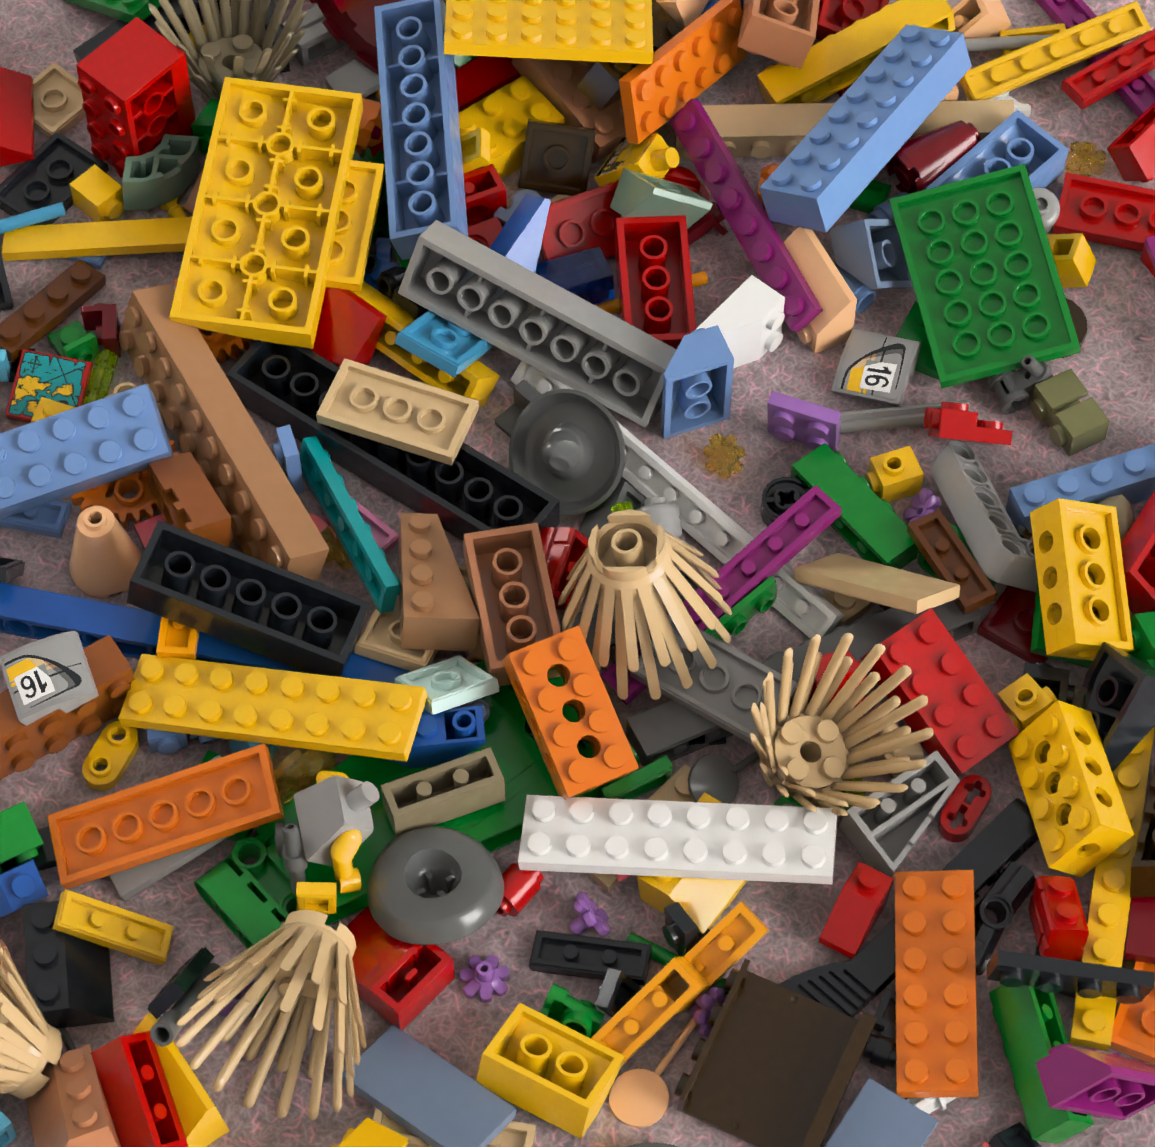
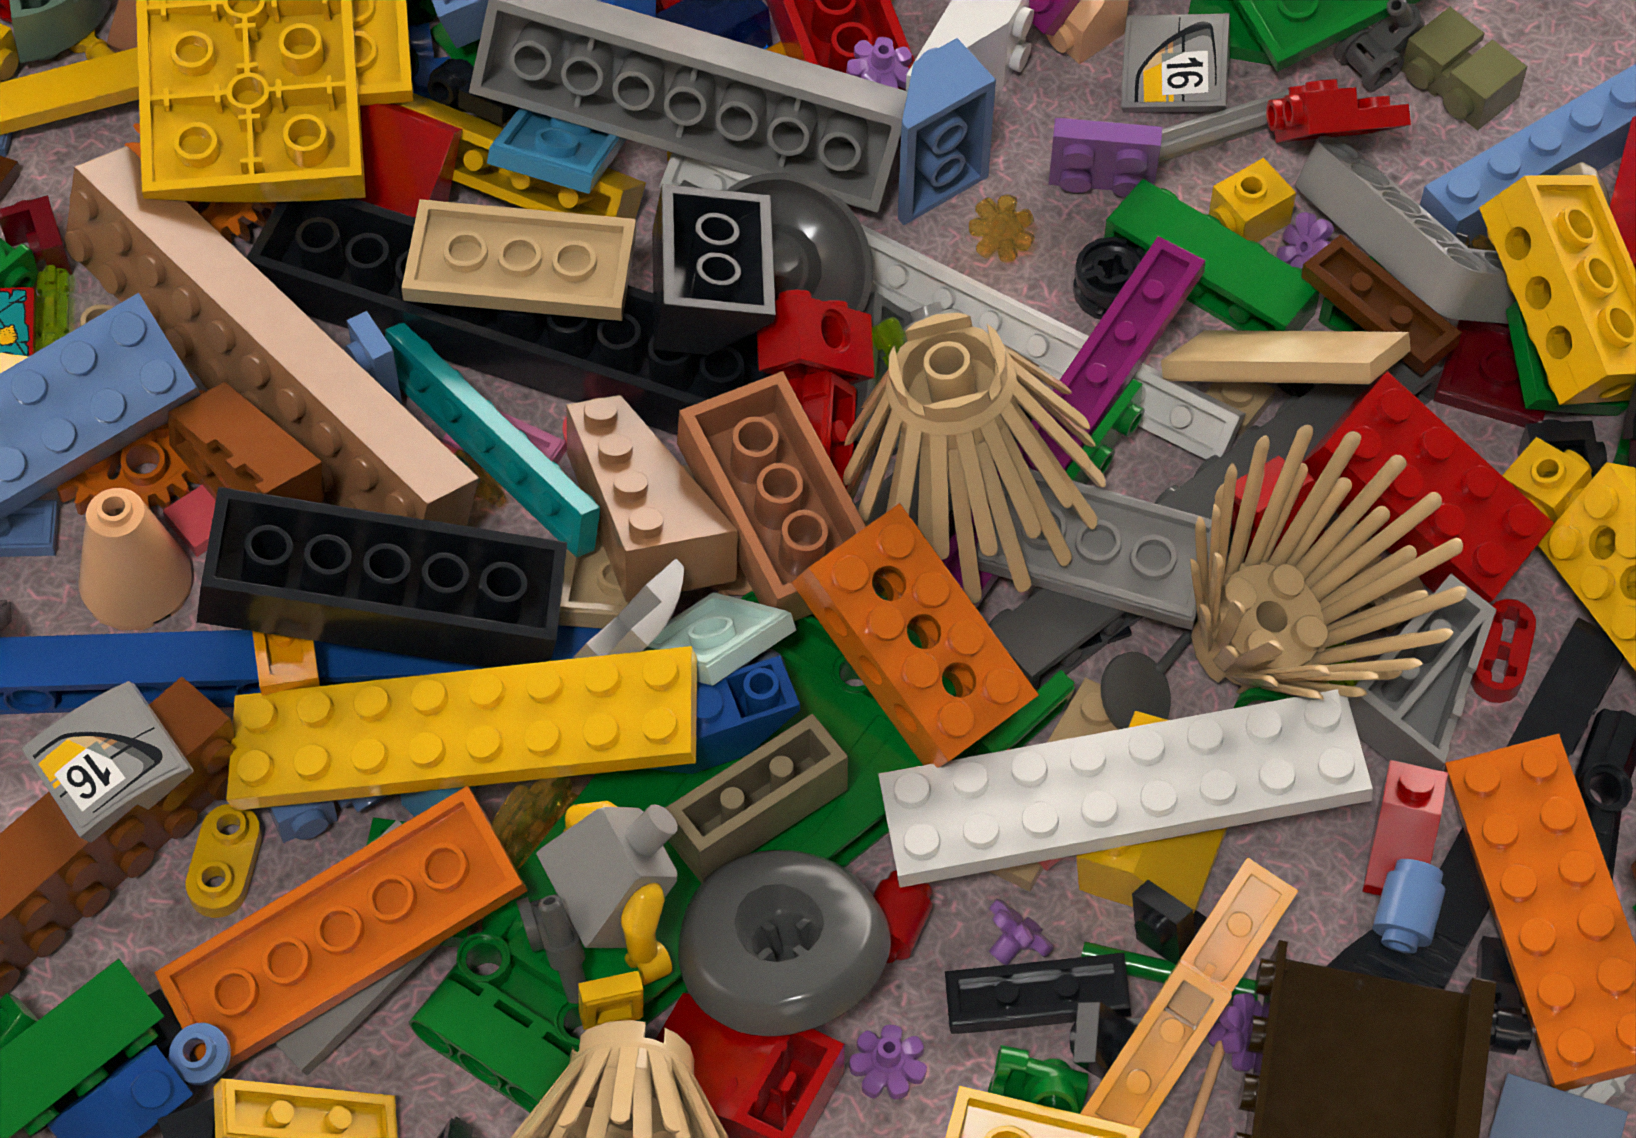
camera: 15 degrees left, 0 degrees up
(68, 876) = (211, 1065): none -> medium blue plate
(403, 661) = (641, 619): none -> light grey brick
(515, 444) = (710, 268): none -> black slope
(565, 502) = (816, 338): none -> red brick
(670, 328) = (880, 62): none -> medium lavender plant
(840, 957) = (1409, 905): none -> medium blue brick

